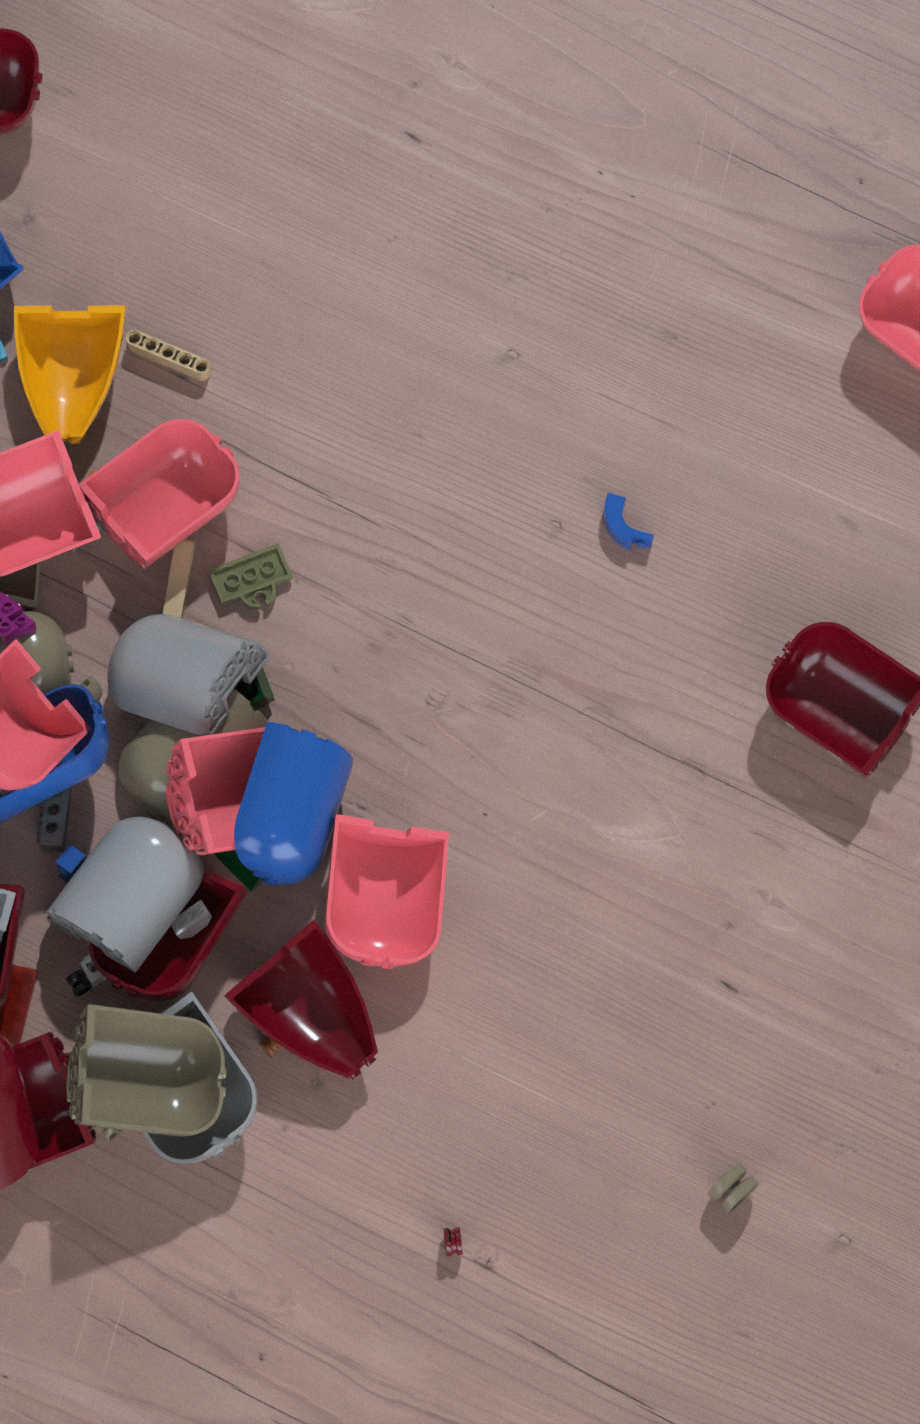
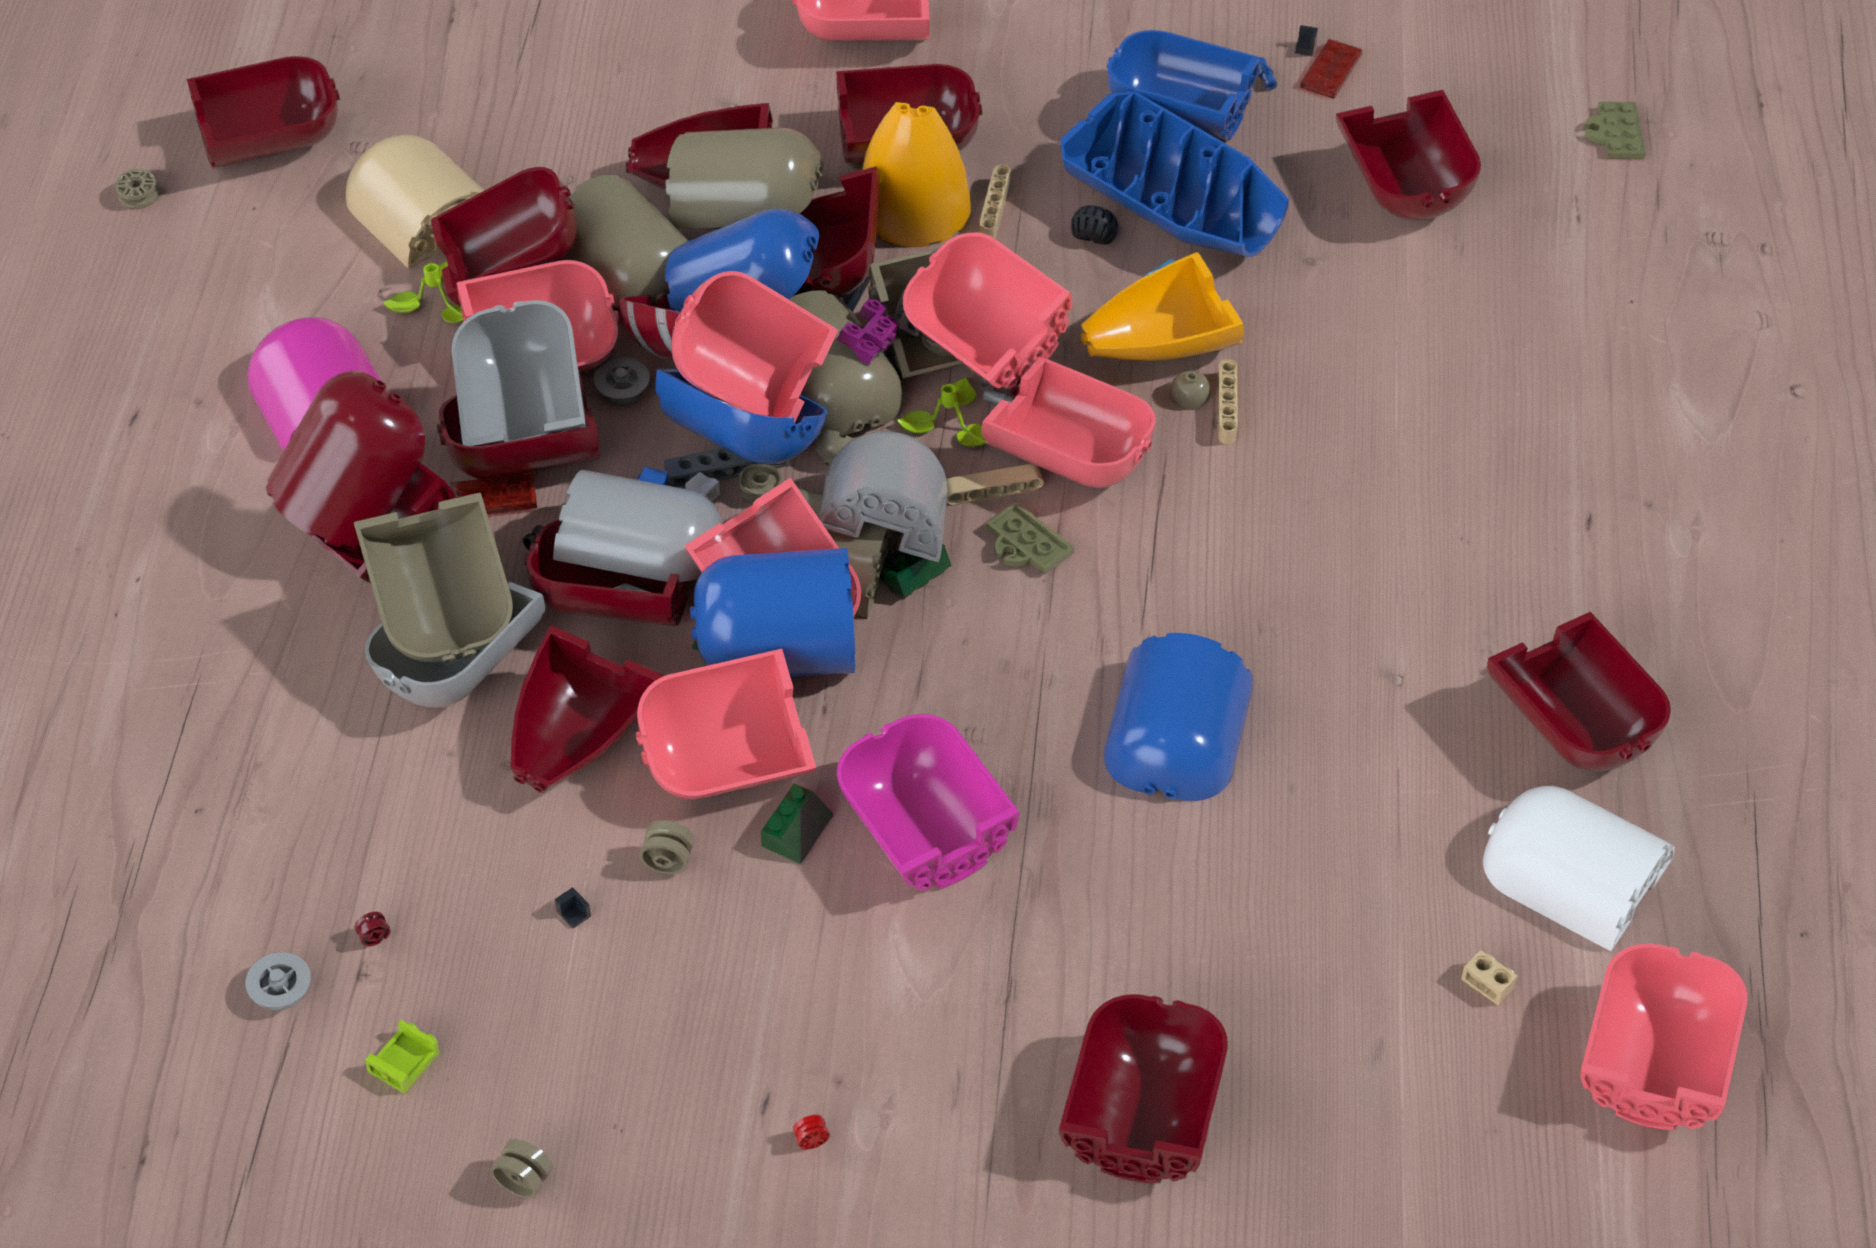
camera: 70 degrees right, 20 degrees down
(60, 568) = (951, 396): none -> lime plant
(87, 827) = (705, 486): none -> white slope
(104, 781) = (757, 480): none -> dark tan wheel
(140, 380) = (1190, 390): none -> dark tan cylinder
(468, 979) = (666, 847): none -> dark tan wheel
(477, 871) = (795, 824): none -> dark green slope
(478, 1331) = (278, 981): none -> light grey wheel
(491, 1074) = (572, 907): none -> black panel
(493, 539) = (1178, 717): none -> blue cylinder
(511, 758) = (926, 800): none -> dark pink cylinder
(585, 1252) = (403, 1057): none -> lime panel
(610, 224) = (1584, 695): none -> dark red cylinder
(617, 527) = (1256, 821): blue arch -> none
(745, 306) = (1574, 862): none -> white cylinder
(774, 963) = (811, 1131): none -> red wheel
(823, 419) = (1487, 980): none -> tan brick

